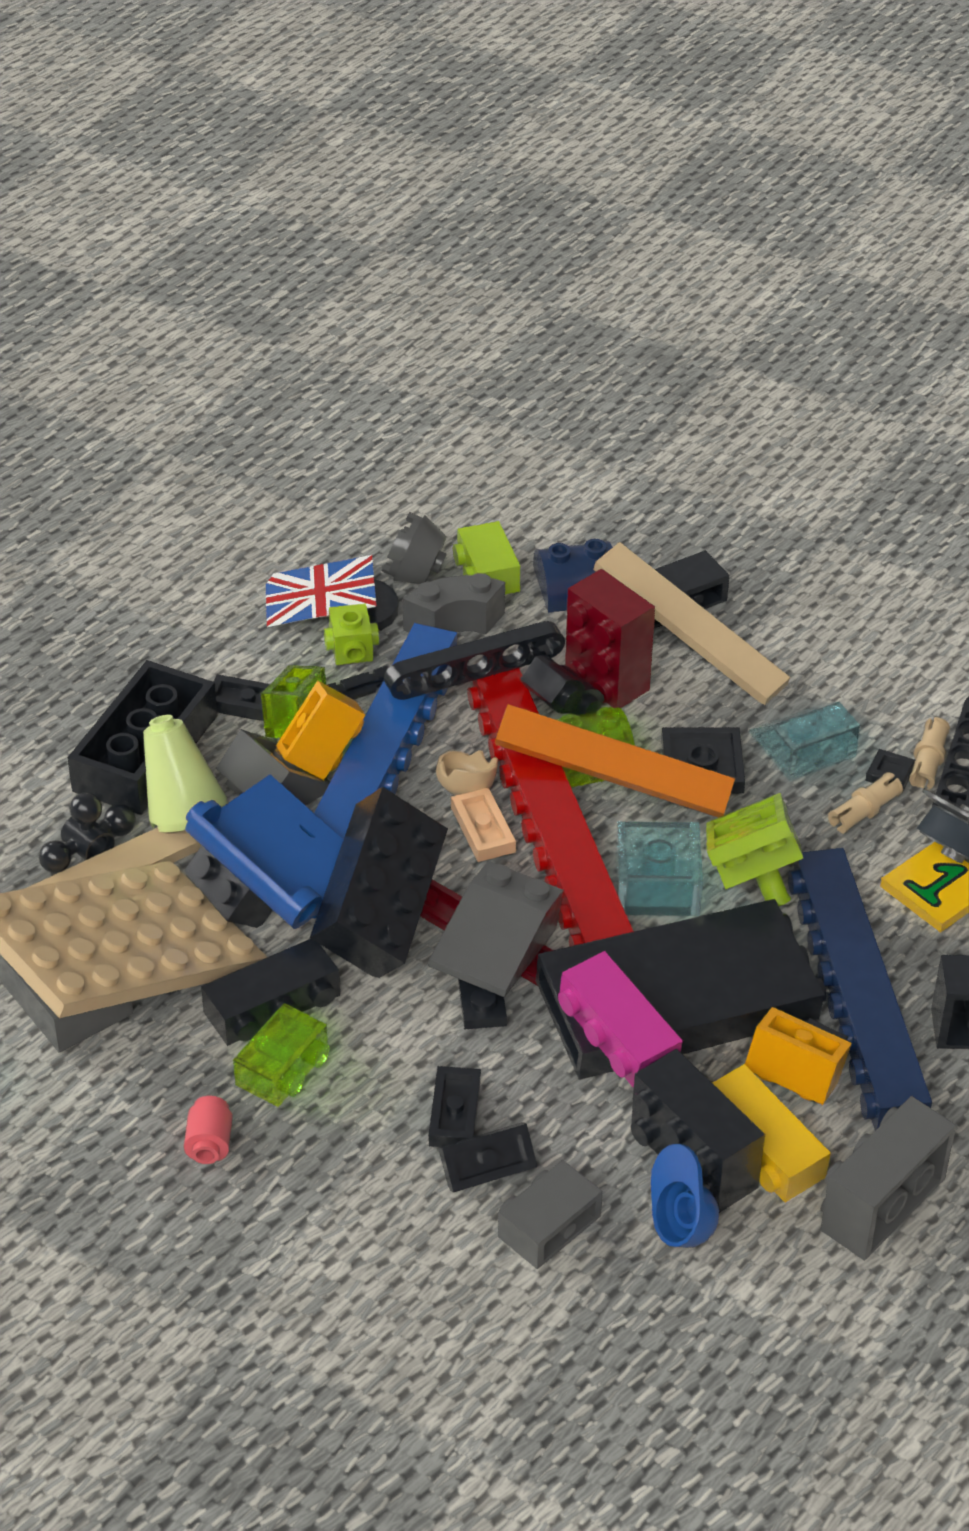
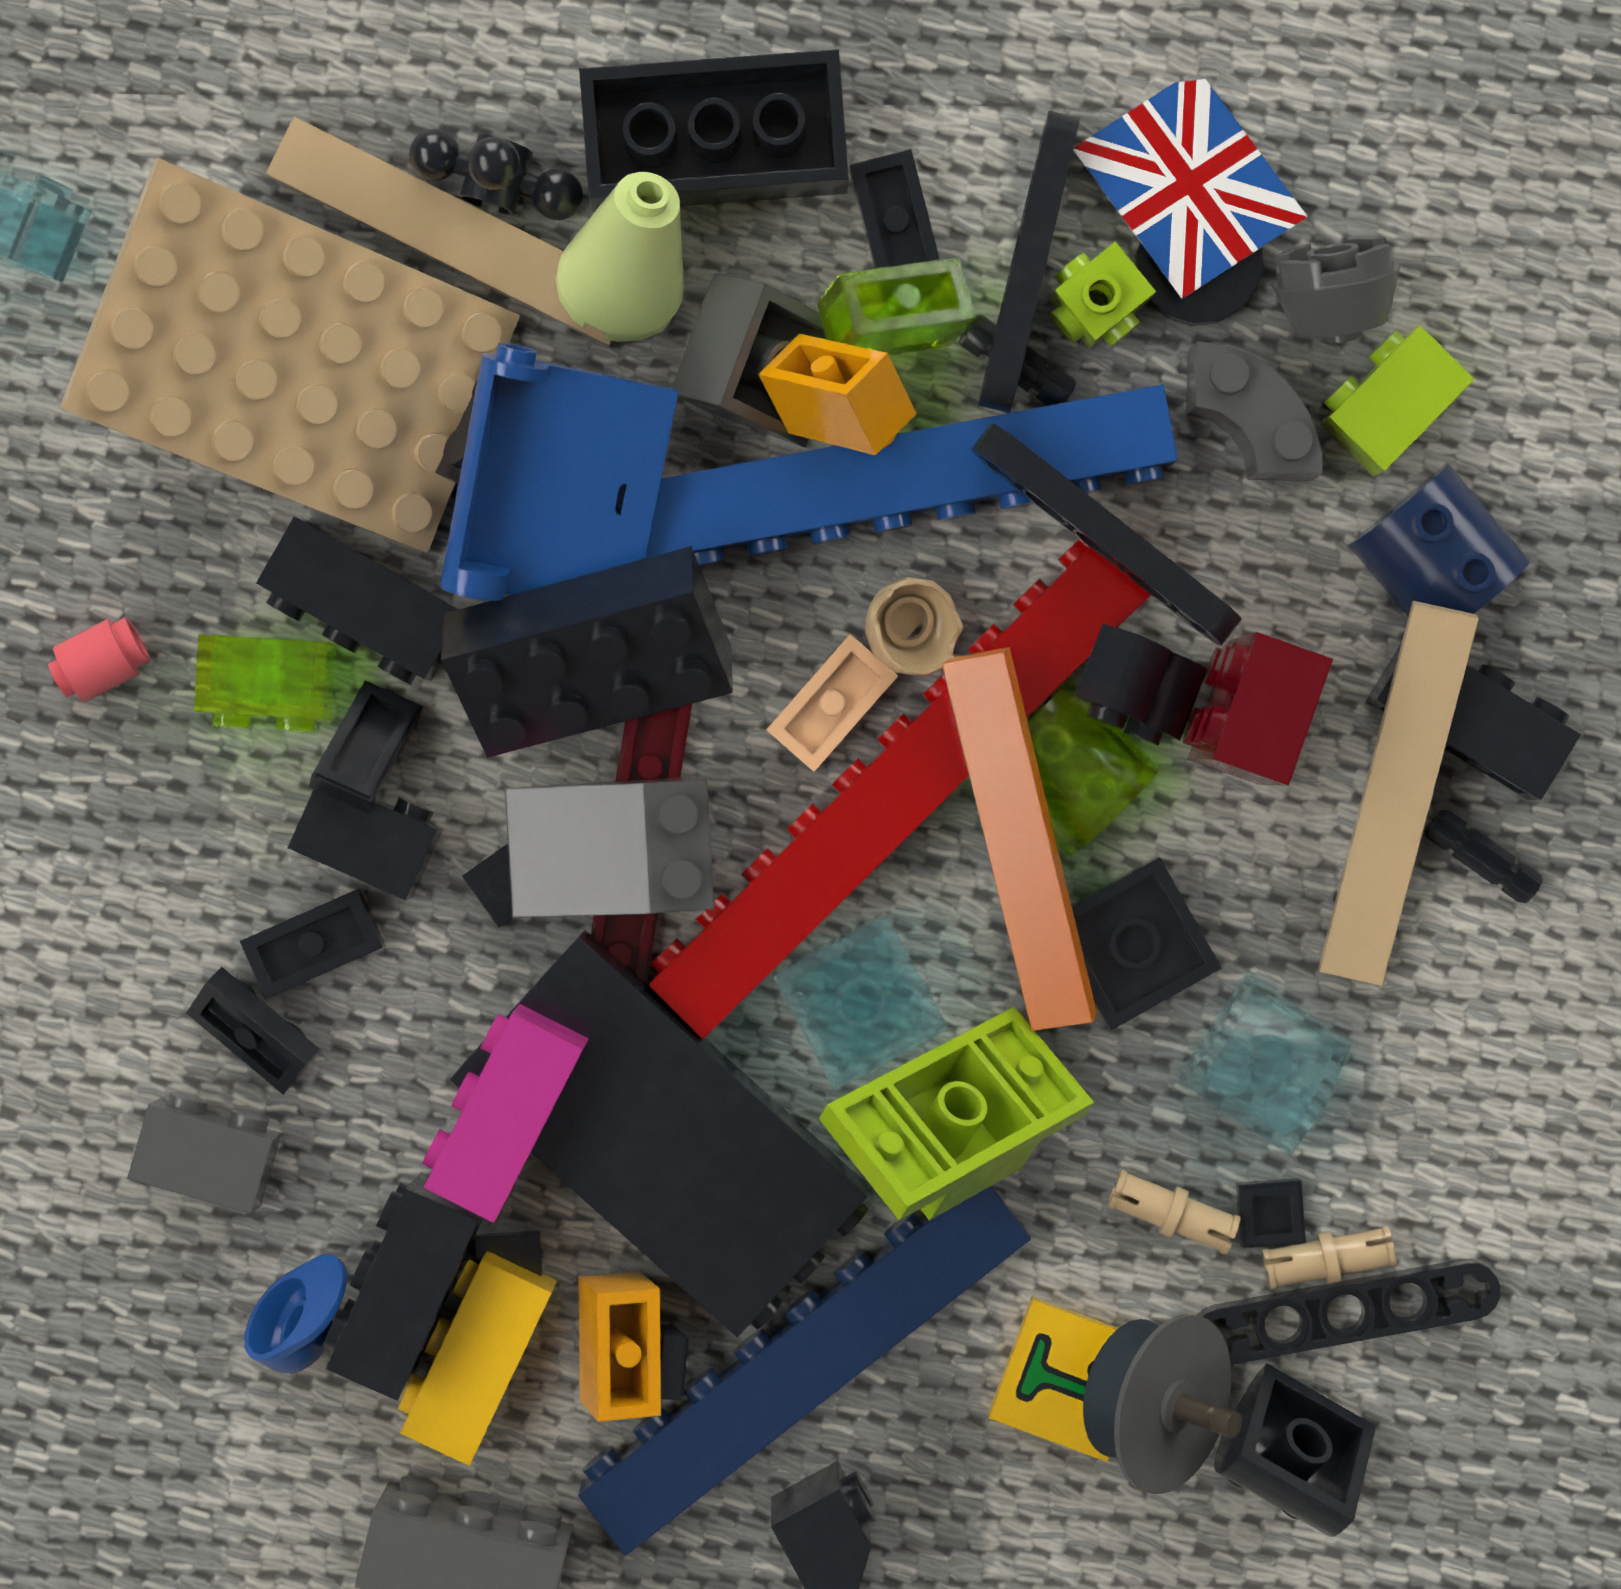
camera: 65 degrees right, 45 degrees up
(312, 649) = (1028, 262): none -> black beam
(358, 1020) = (366, 747): none -> black tile
(409, 1049) = (376, 847): none -> black brick
(752, 618) = (1484, 856): none -> black axle

